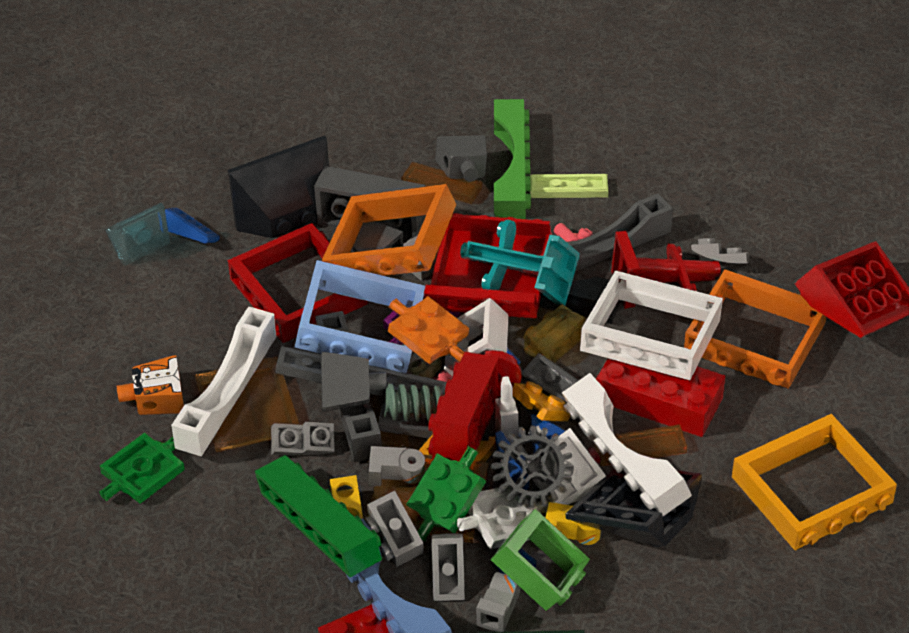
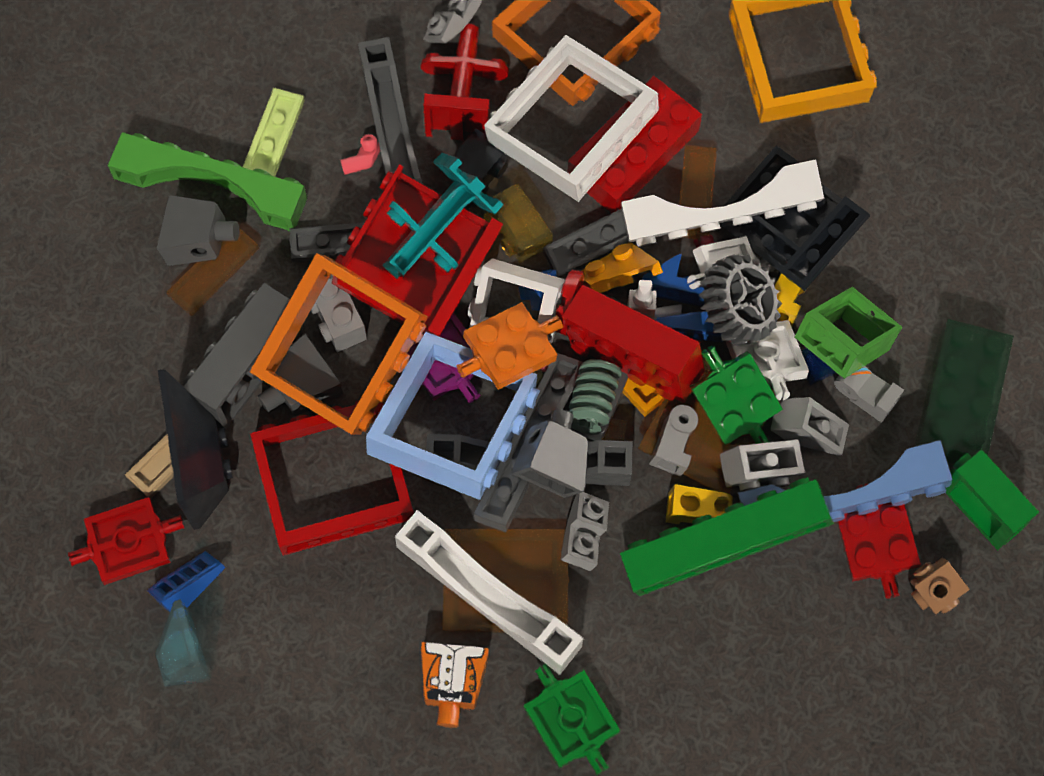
camera: 75 degrees left, 25 degrees up
(207, 191) = (126, 540): none -> red plate

